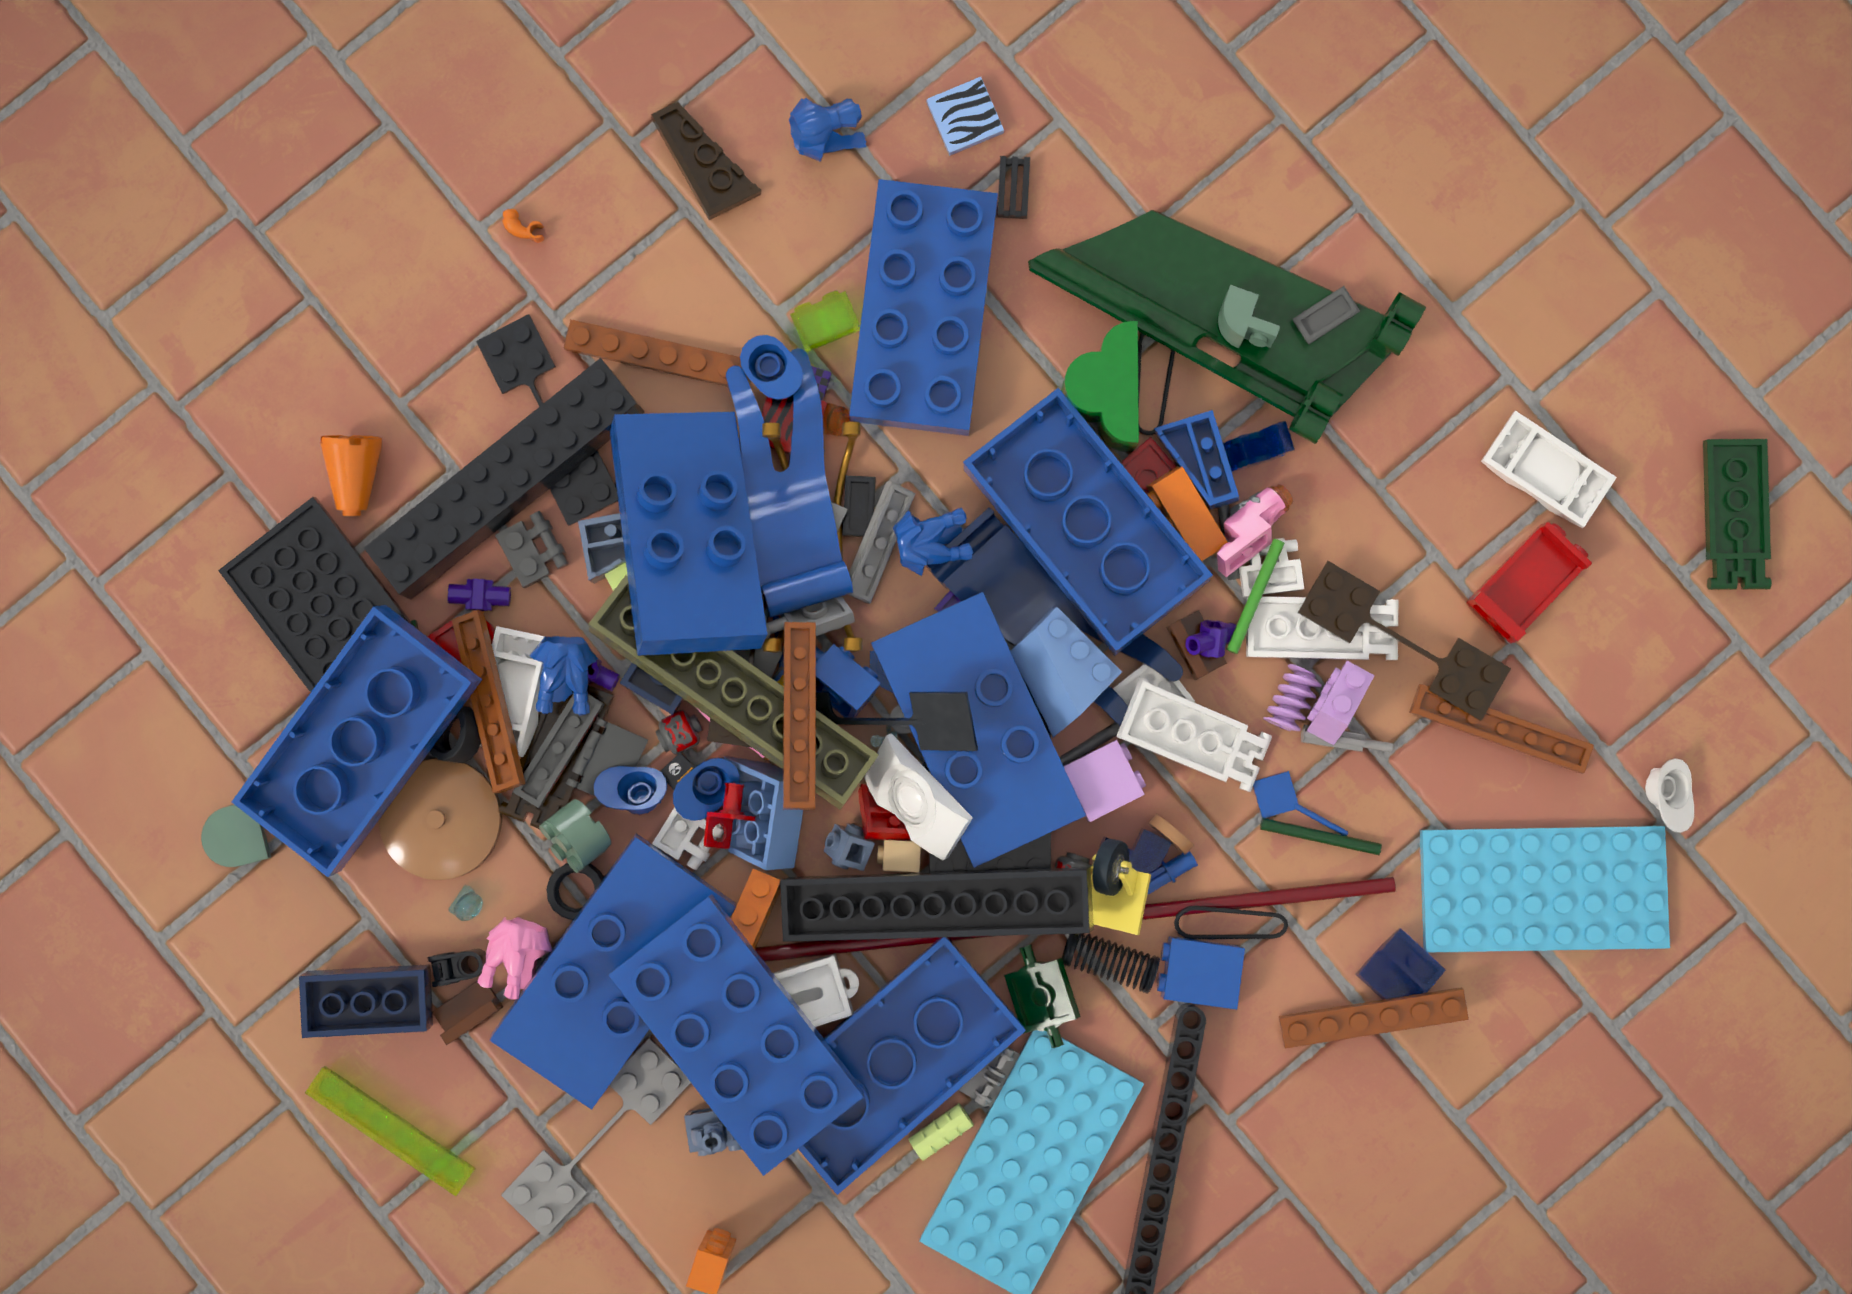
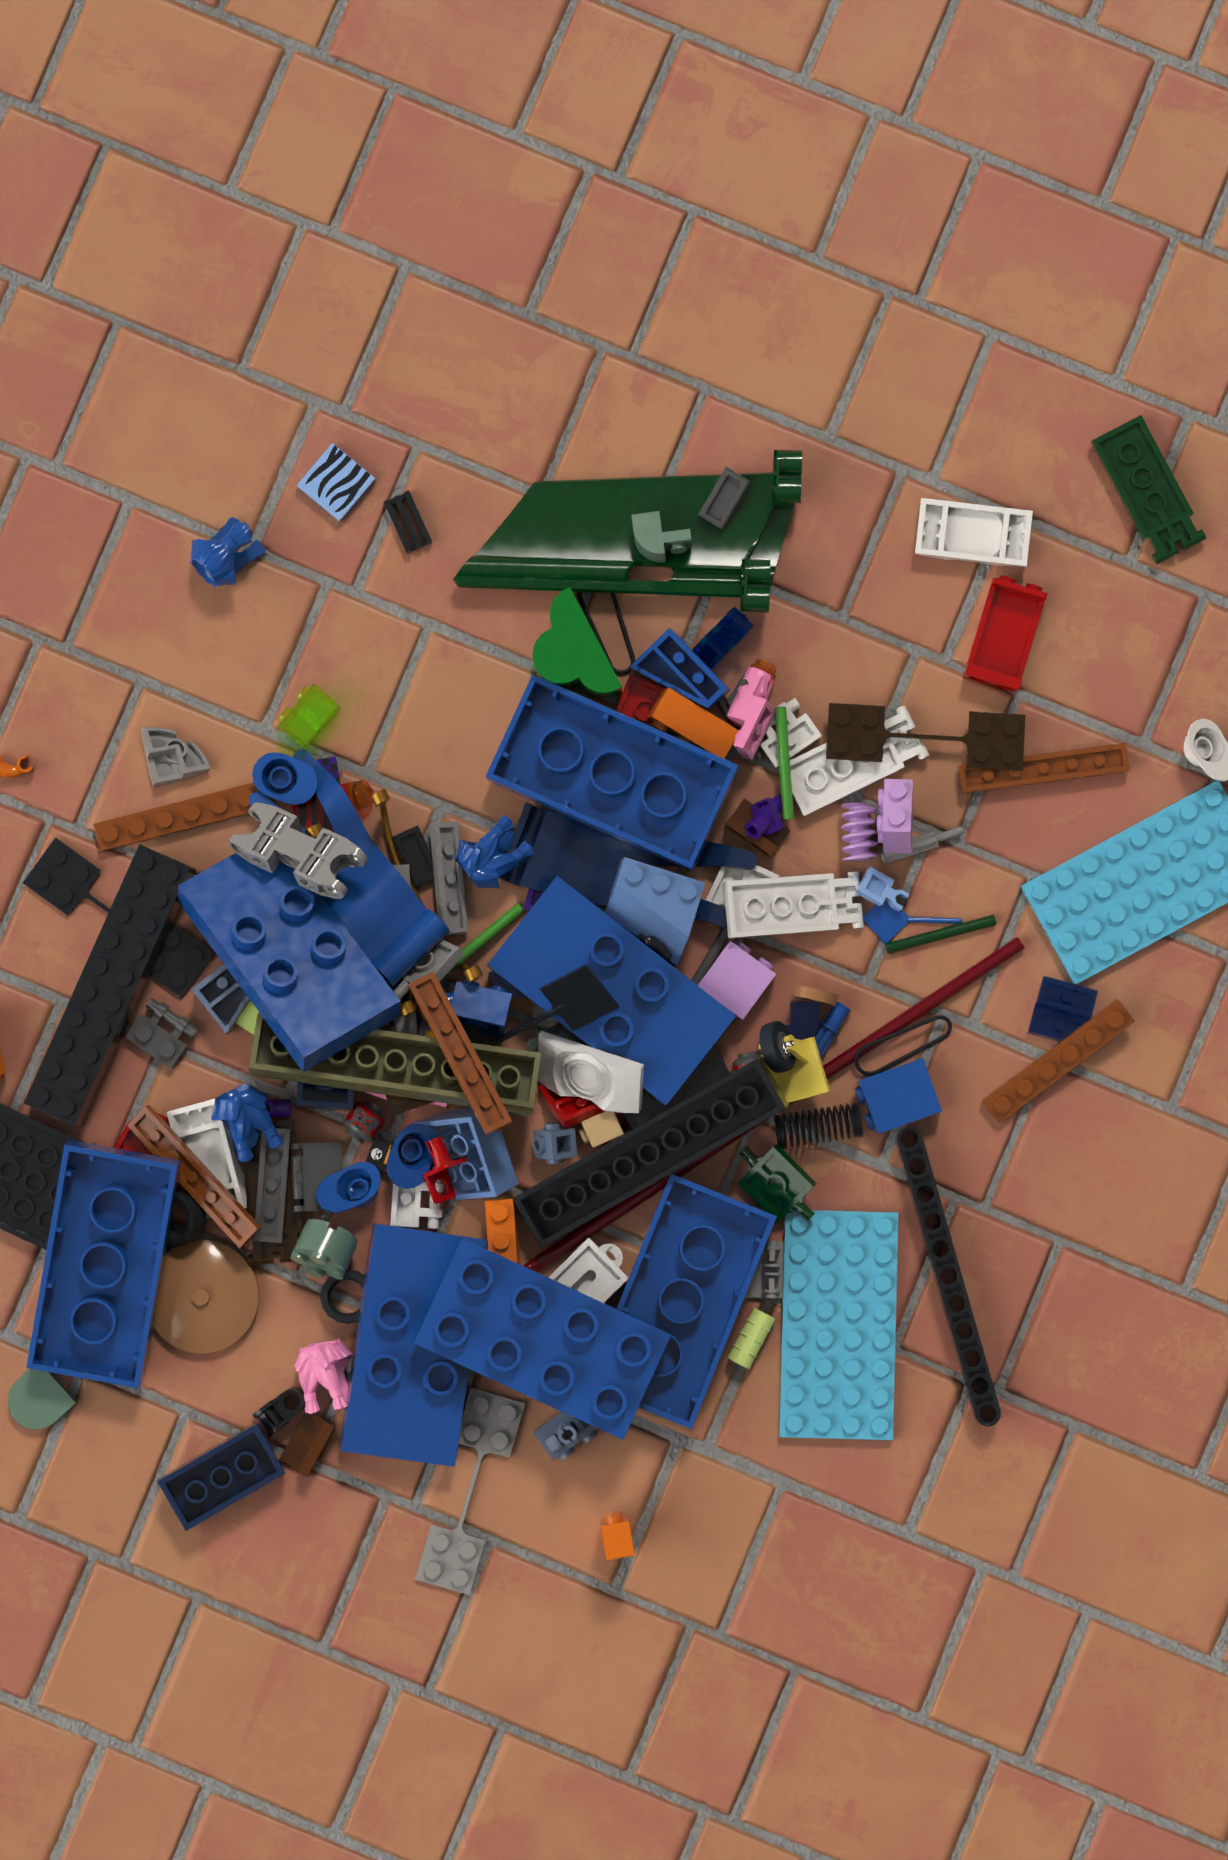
camera: 30 degrees left, 0 degrees up
(390, 1130) = (296, 1573): clear neon green plate -> none
(466, 904) = (261, 1355): clear light blue plate -> none
(479, 594) = (138, 1093): dark purple axle -> none
(676, 295) = (171, 758): none -> light grey brick
(708, 171) = (143, 639): dark brown wing -> none
(755, 456) = (313, 859): none -> light grey piece
(887, 615) = (488, 934): none -> bright green bar
(923, 307) = (385, 663): blue plate -> none
(1044, 708) = (656, 945): none -> black piece
(1283, 763) = (877, 889): none -> light blue plate

